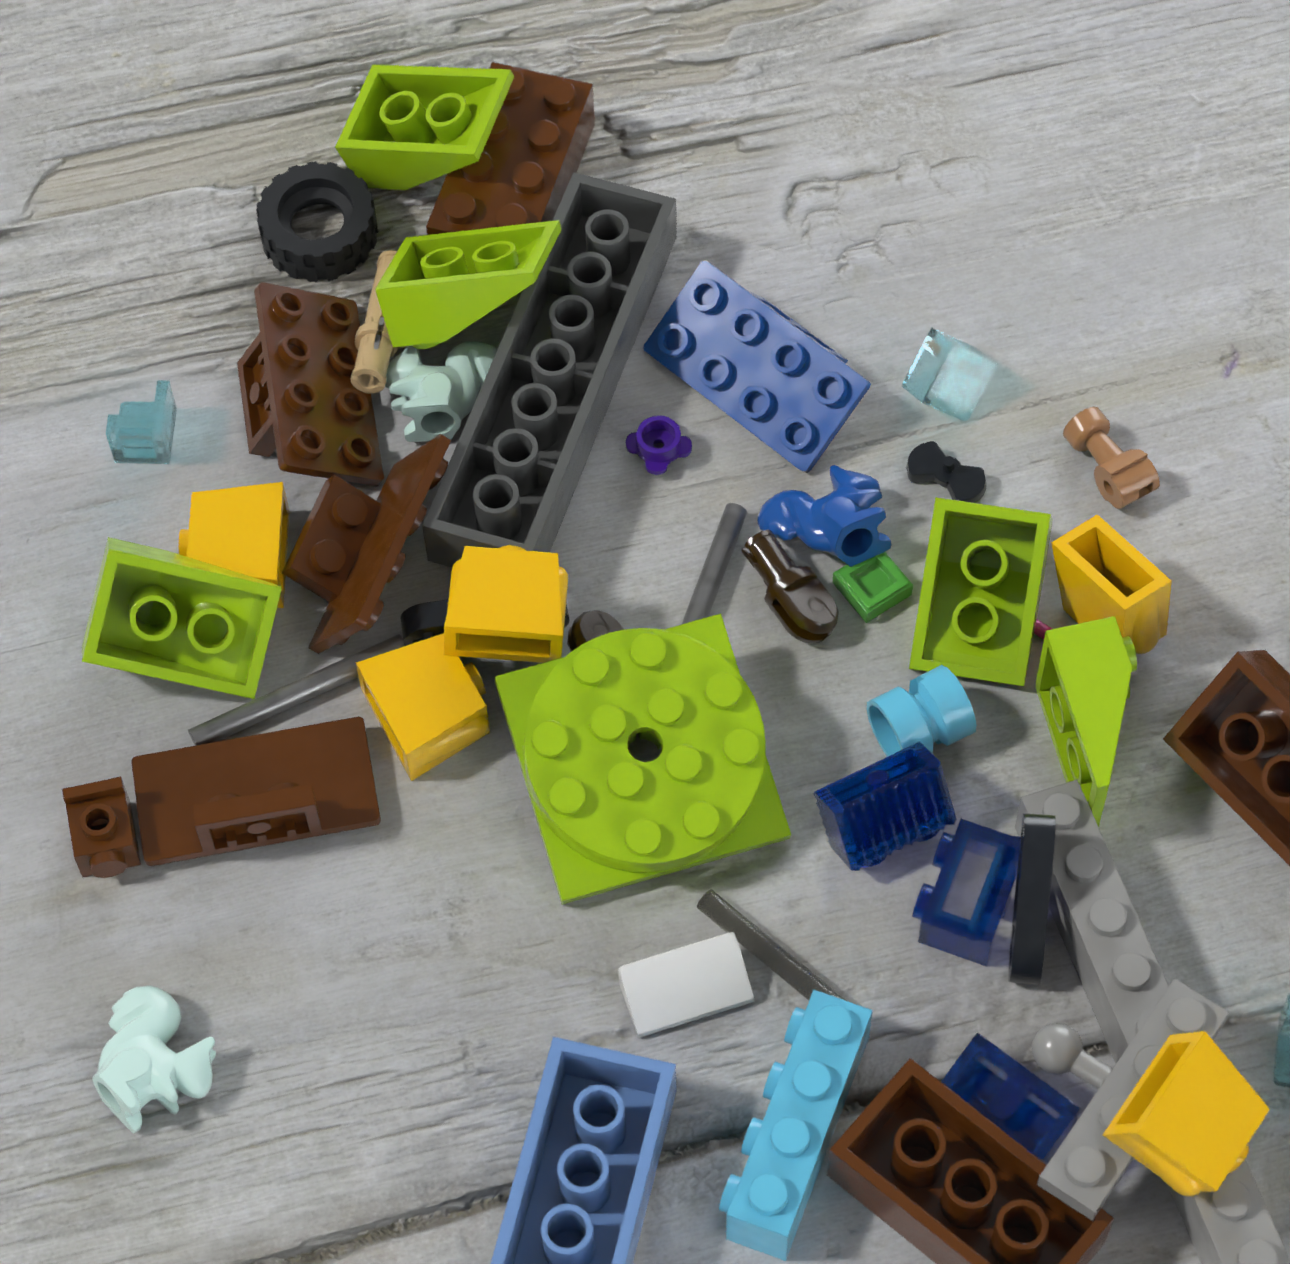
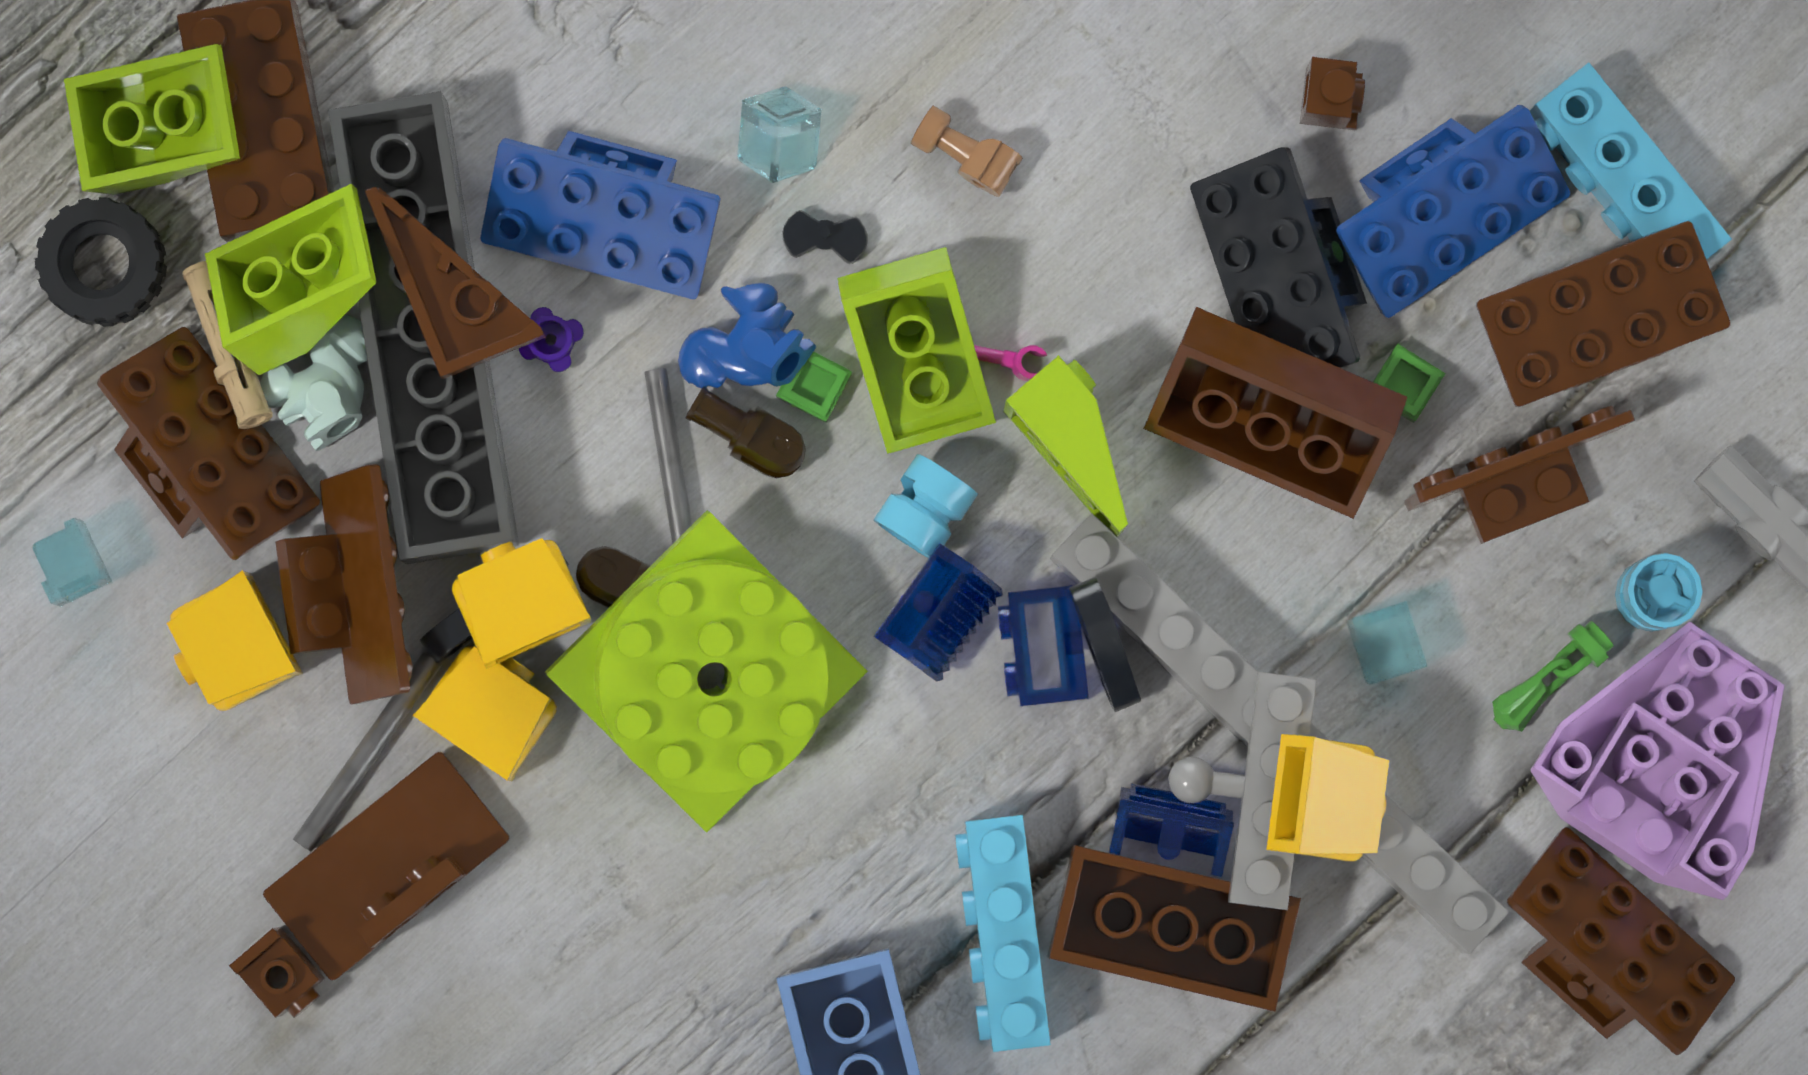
camera: 30 degrees left, 25 degrees up
(179, 619) = (228, 754): lime slope -> none
(590, 349) = (454, 305): none -> reddish brown wing
(685, 984) = (850, 854): white slope -> none
(763, 946) = (905, 786): clear smoke bar -> none
(1109, 577) = (1033, 302): yellow torso -> none

